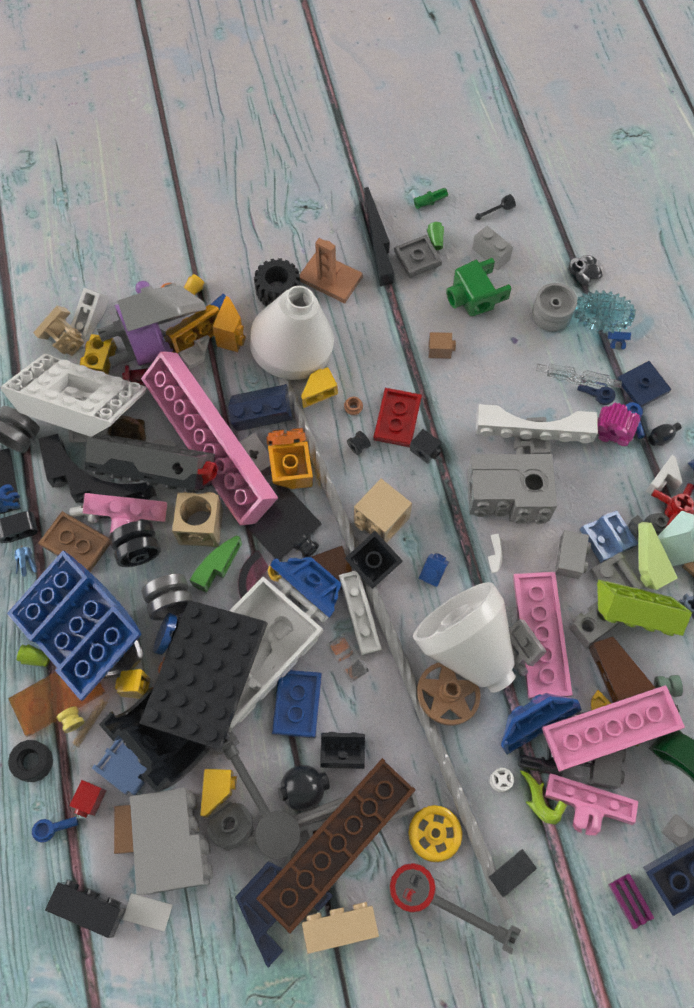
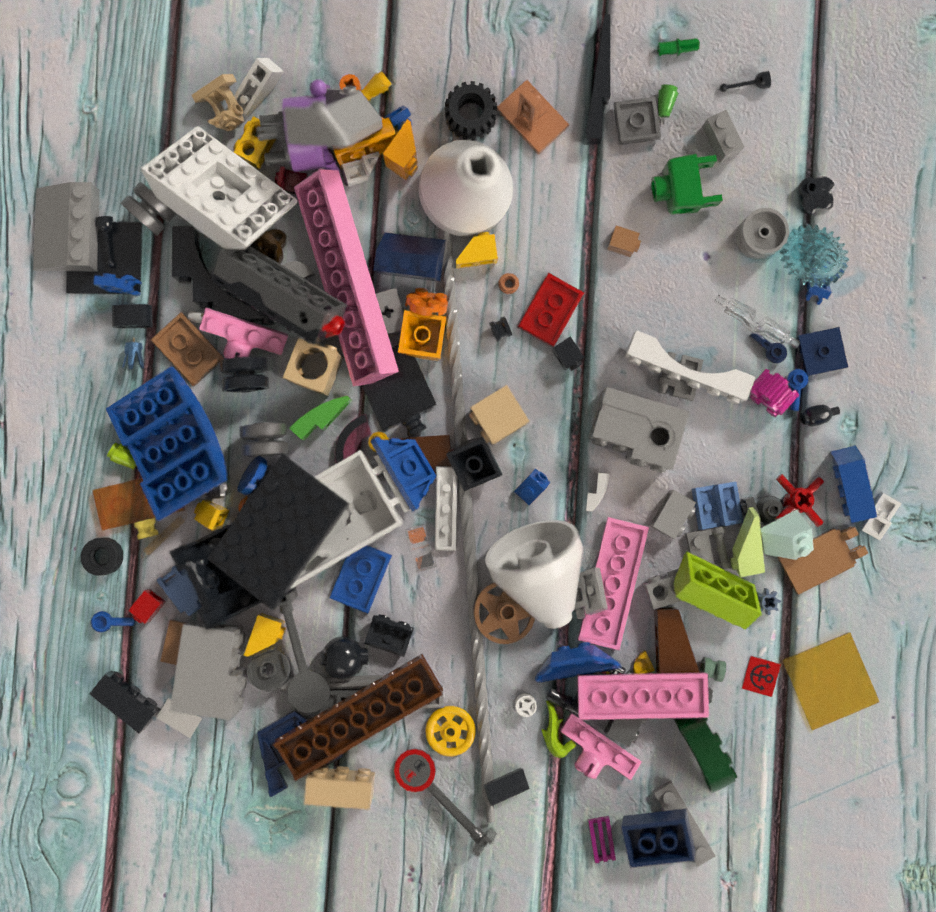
camera: 15 degrees right, 20 degrees up
(668, 475) = (804, 459): white slope -> none

